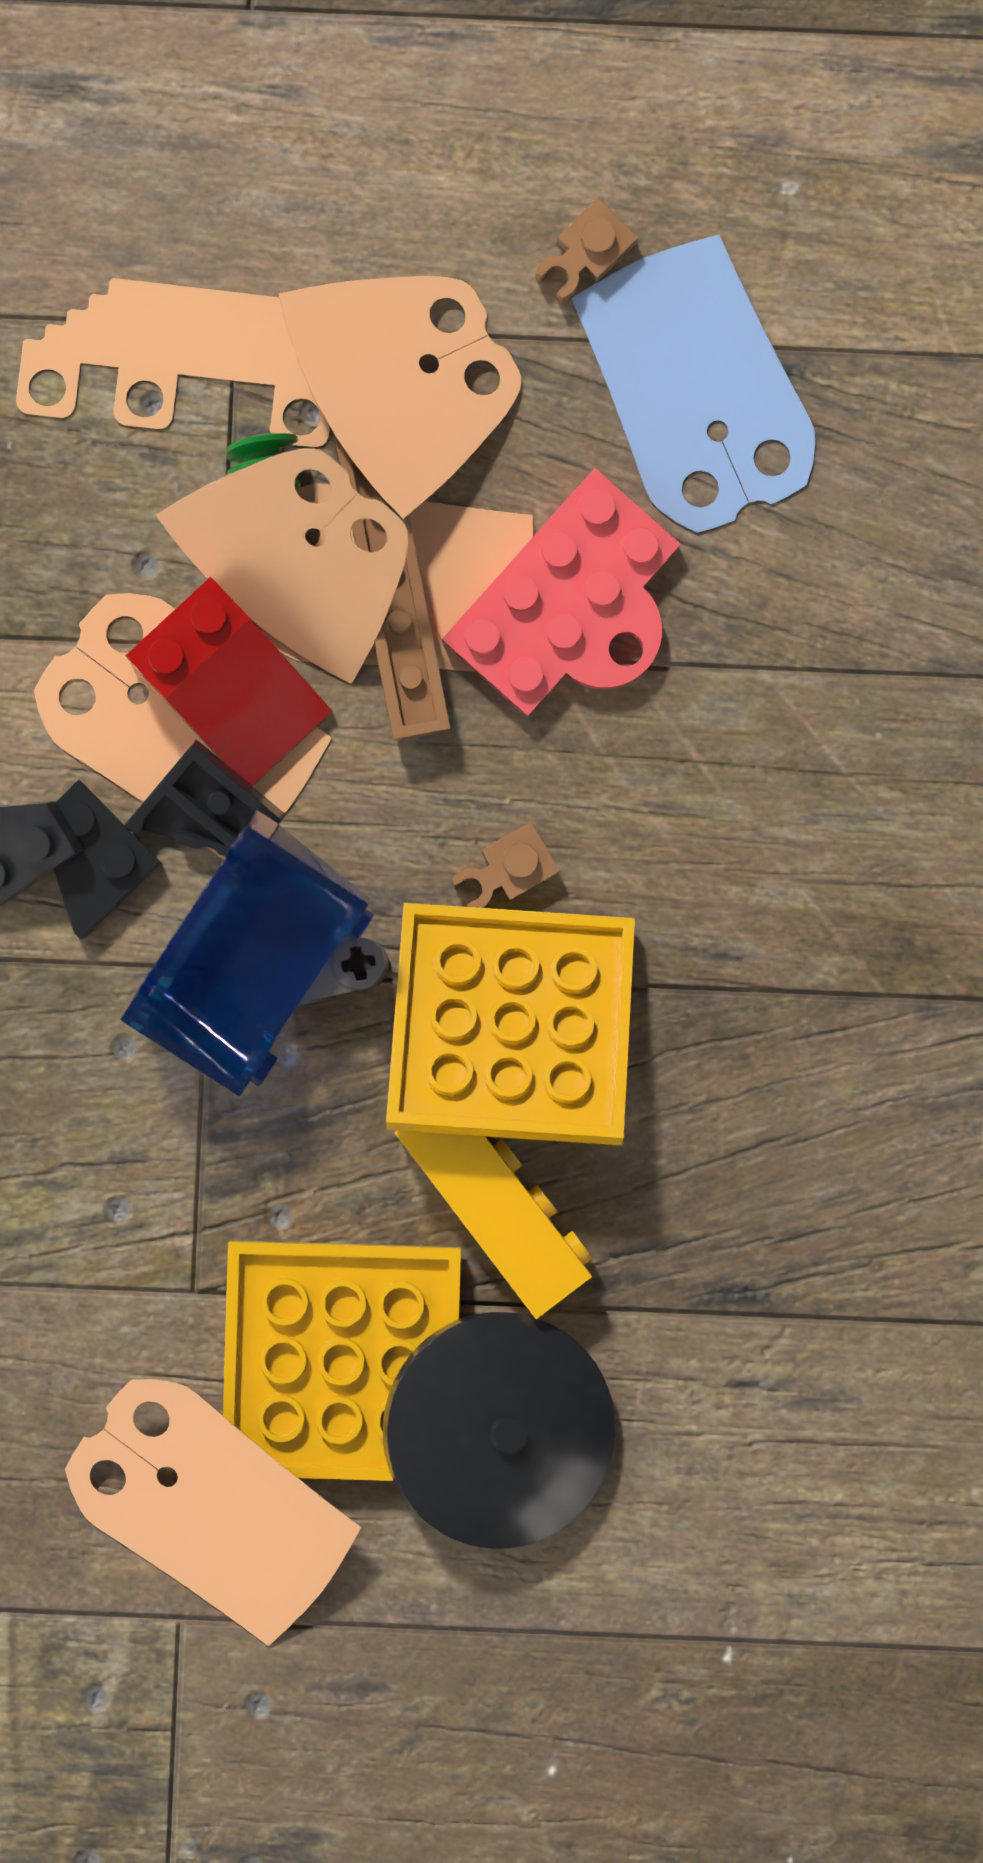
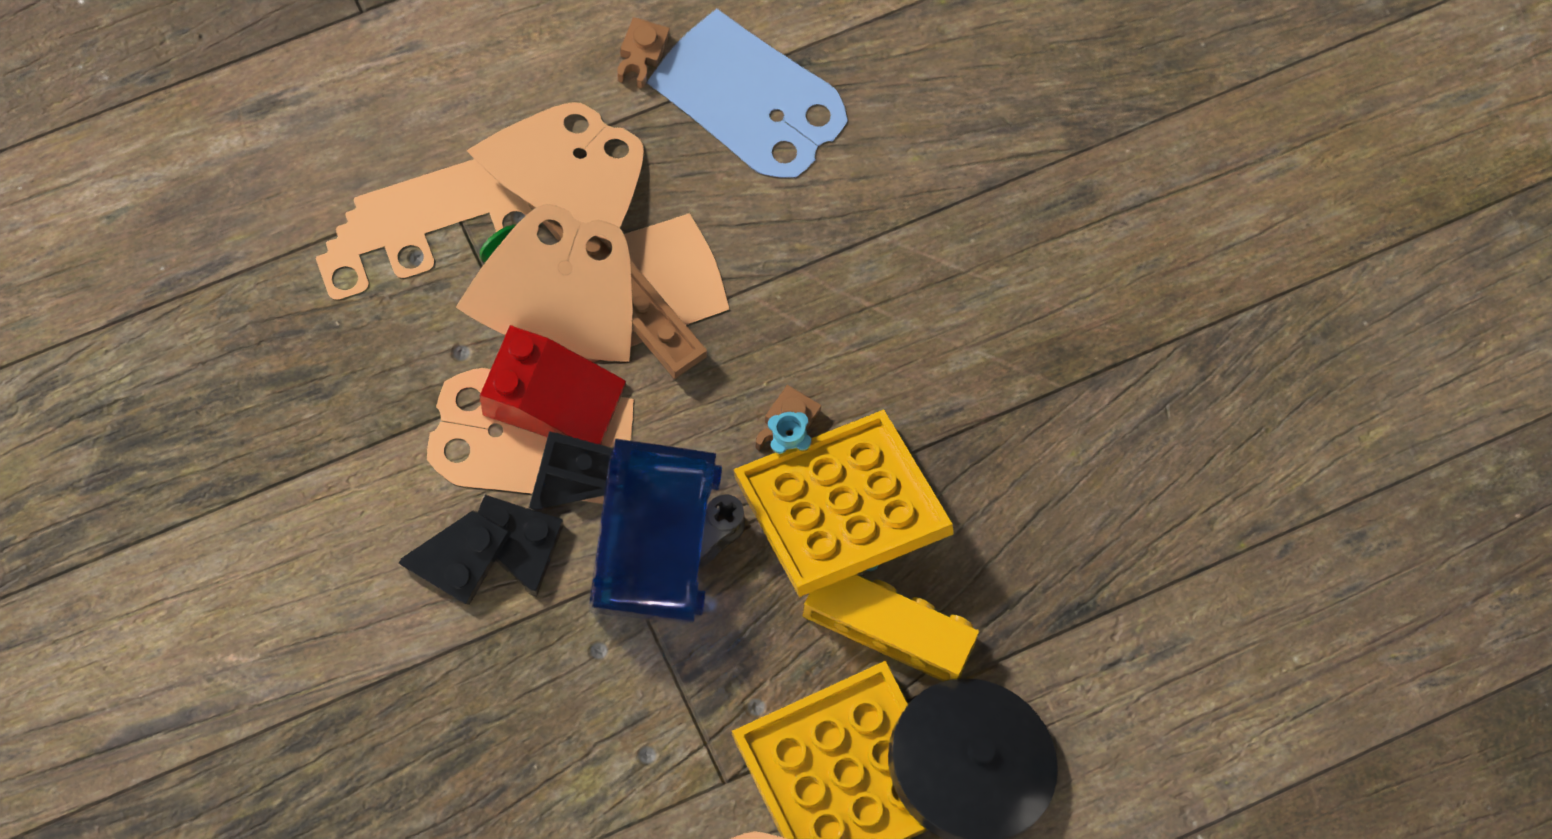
camera: 30 degrees left, 20 degrees down
(489, 878) = (789, 421): none -> medium azure plate
(569, 599) = (739, 249): coral plate -> none

